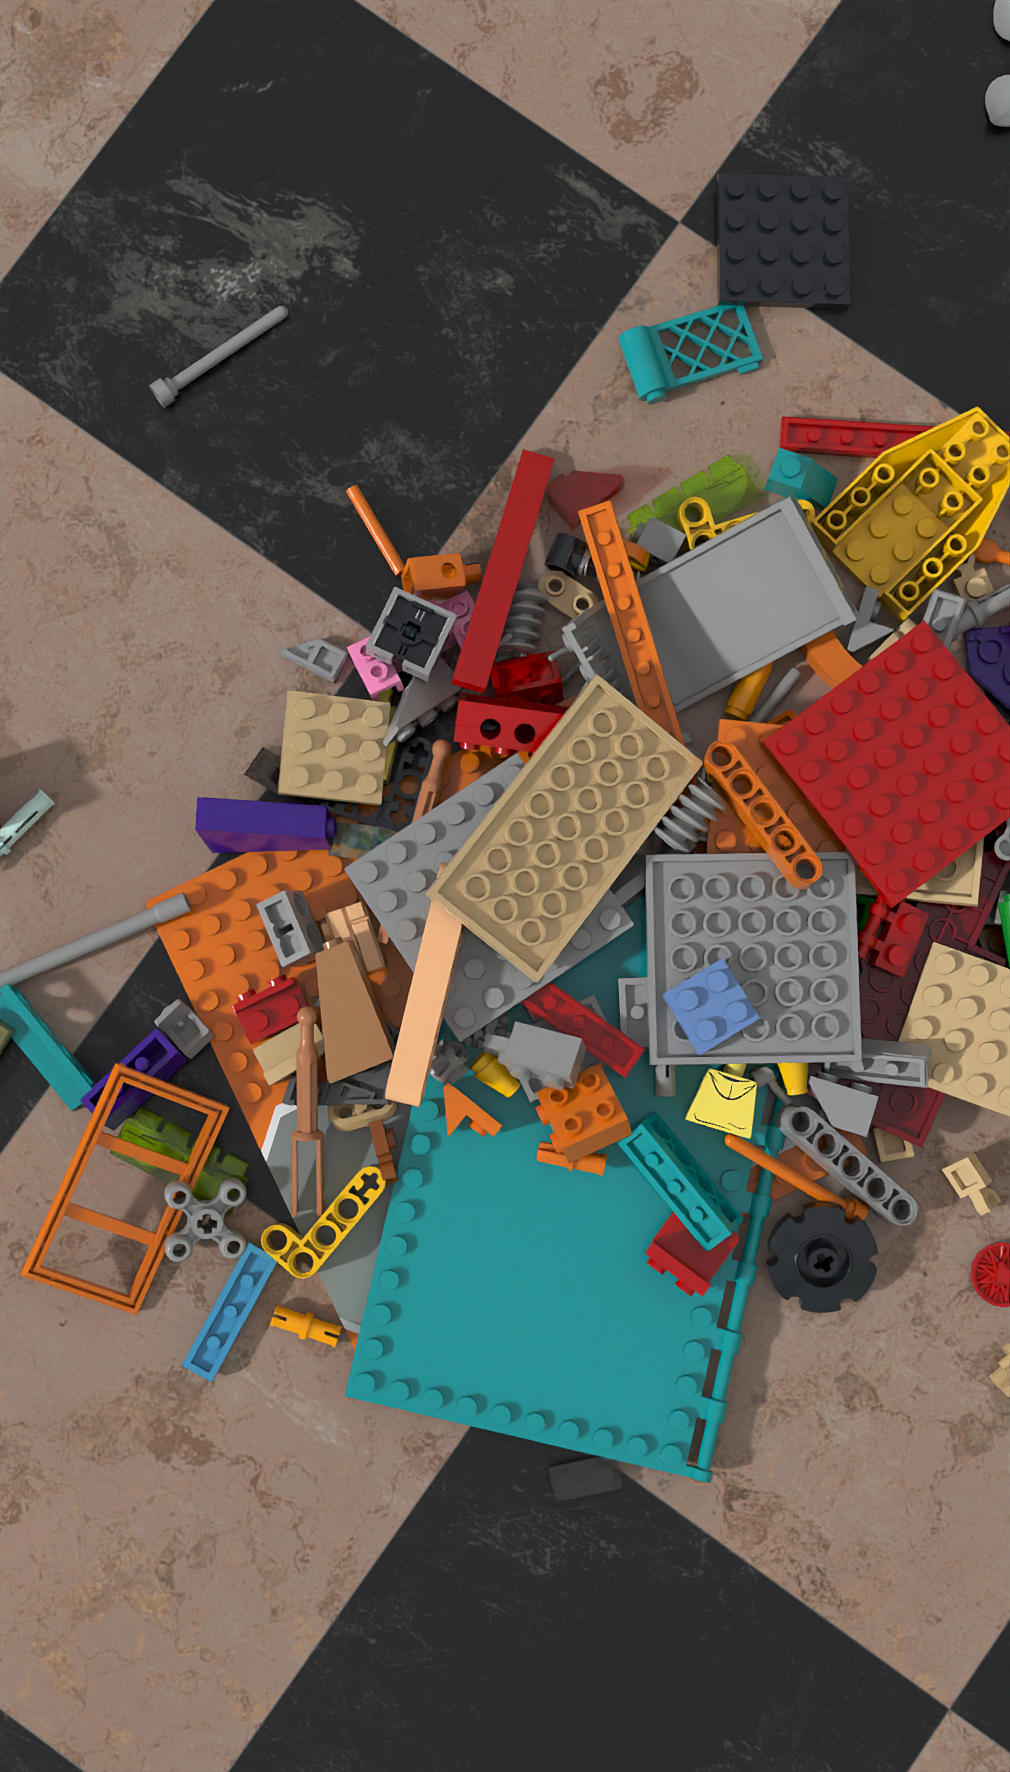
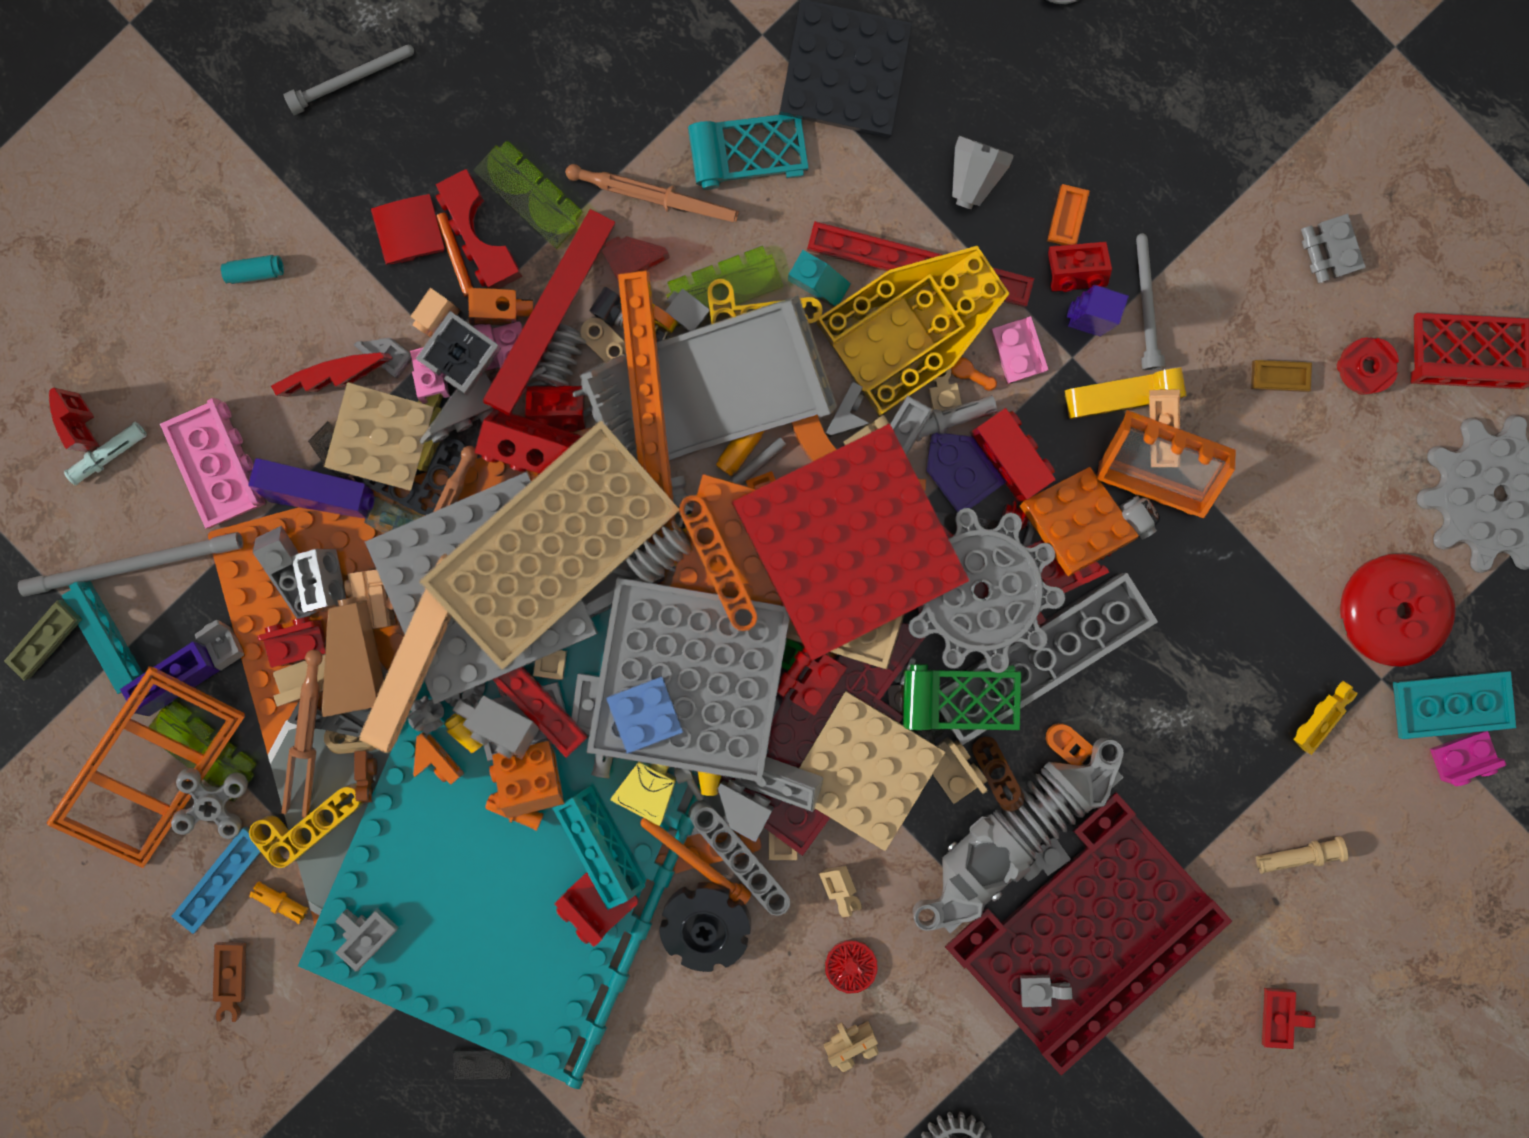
camera: 10 degrees right, 5 degrees up
(140, 818) = (212, 462): none -> bright pink bracket
(146, 589) = (252, 269): none -> teal piece
(245, 922) = (275, 554): none -> light grey slope
(262, 1428) = (229, 978): none -> dark orange plate
(269, 683) = (335, 371): none -> red slope
(317, 511) = (407, 229): none -> red slope
(369, 597) = (432, 312): none -> light nougat brick
(374, 465) = (463, 199): none -> red arch
(421, 1342) = (363, 936): none -> light grey hinge
(454, 454) = (532, 201): none -> clear neon green windscreen
(583, 976) = (551, 665): none -> tan plate
(589, 419) = (651, 193): none -> nougat piece
(957, 324) = (976, 170): none -> light grey cone

